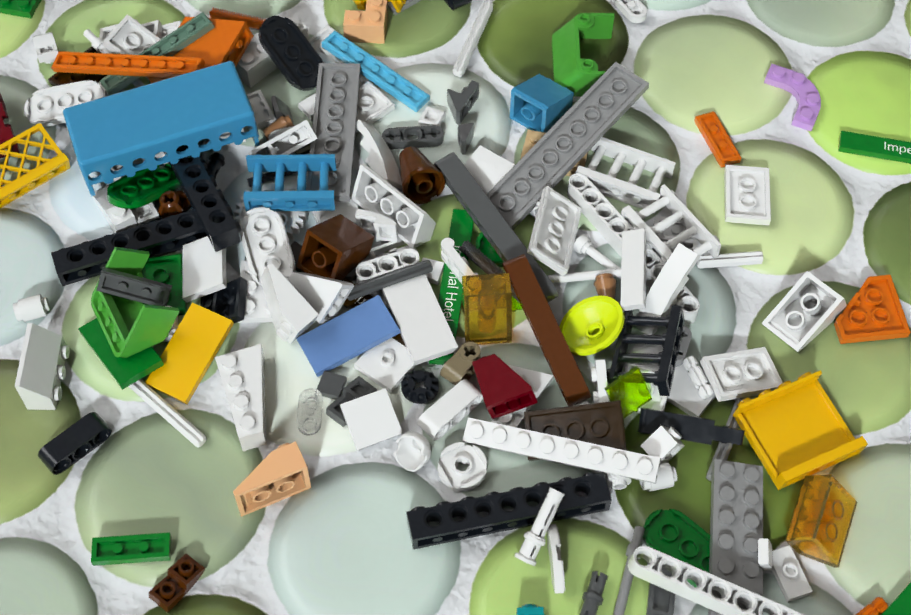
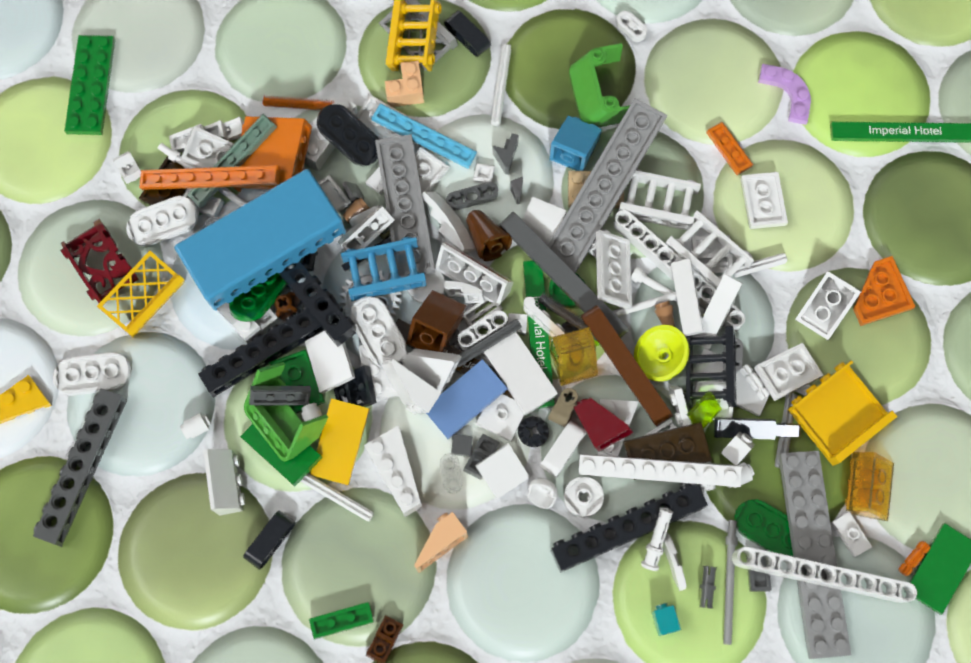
camera: 10 degrees left, 15 degrees up
(765, 554) = (833, 526): white tile -> none

